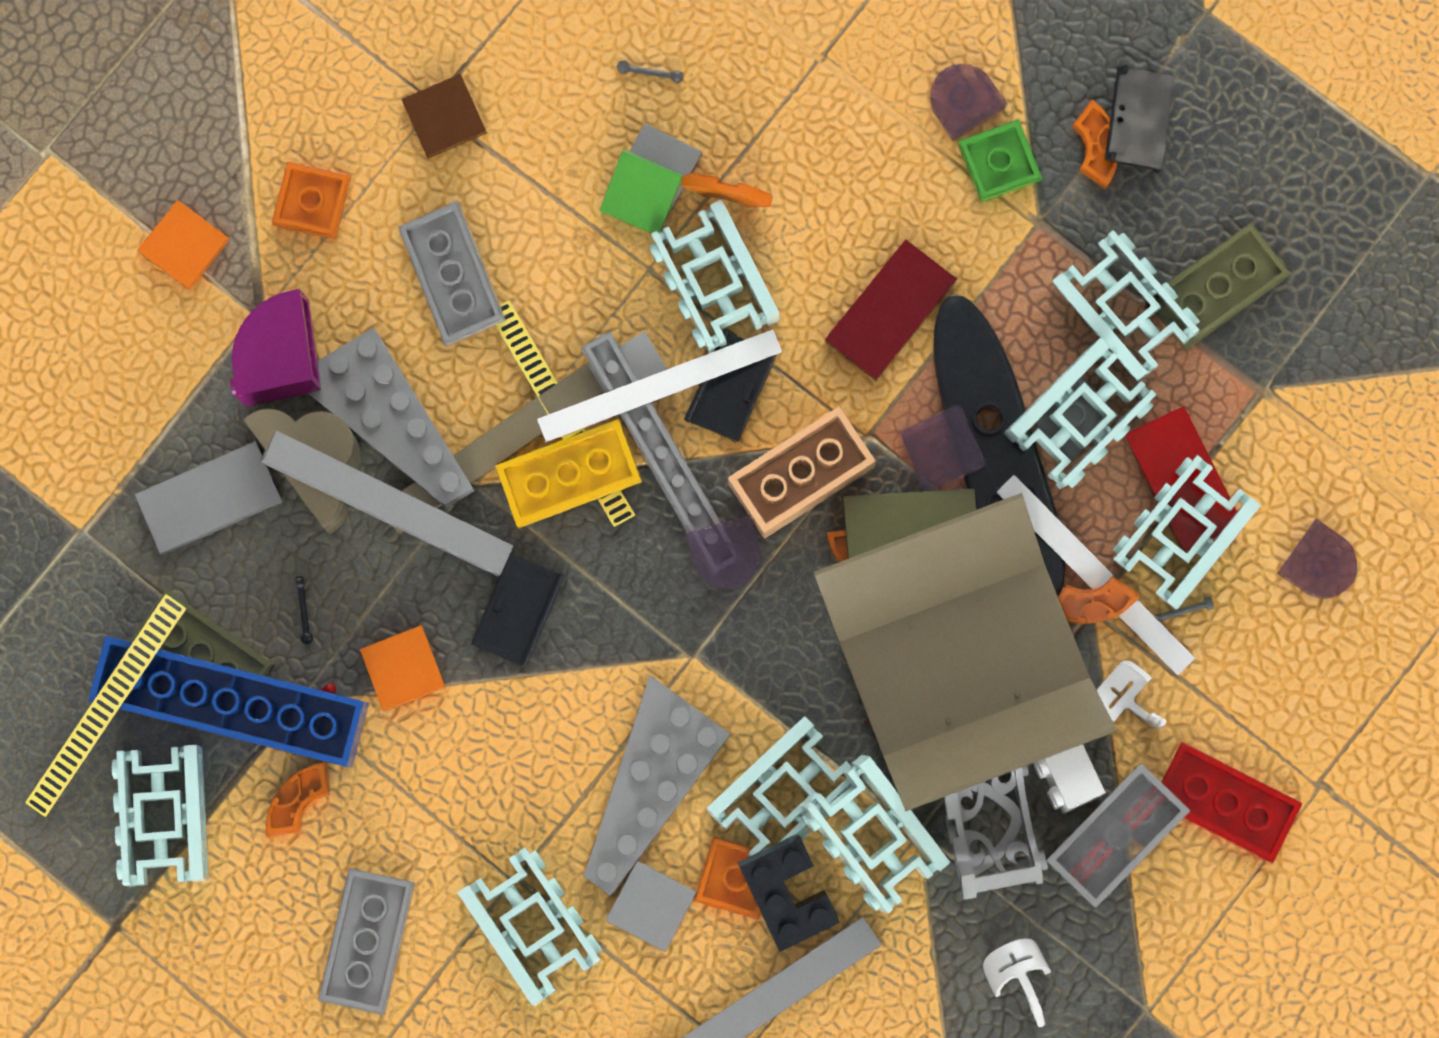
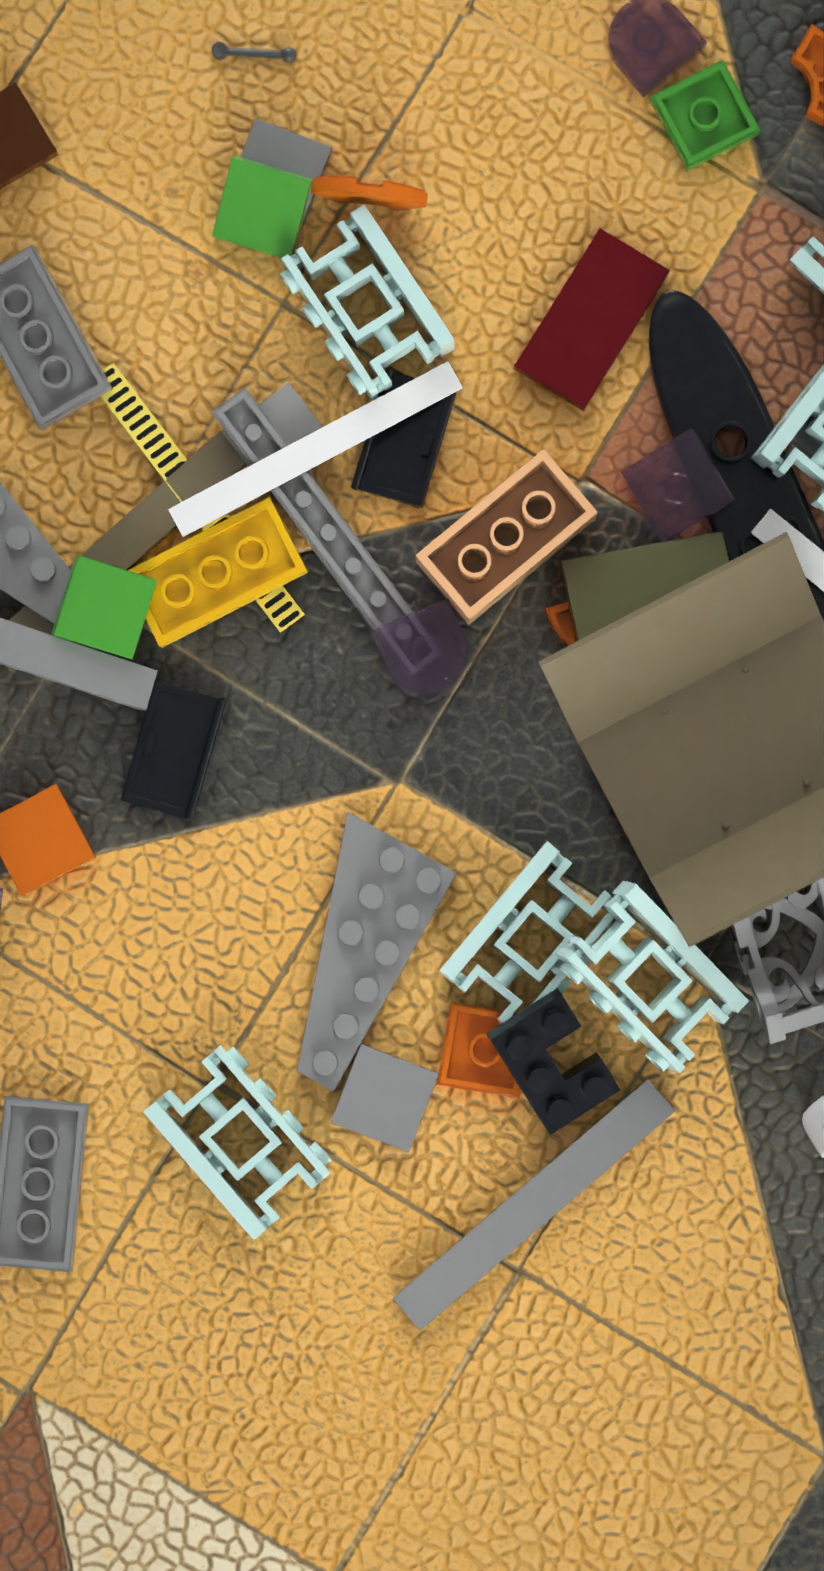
camera: 10 degrees left, 5 degrees up
(477, 489) = (104, 607): none -> bright green tile

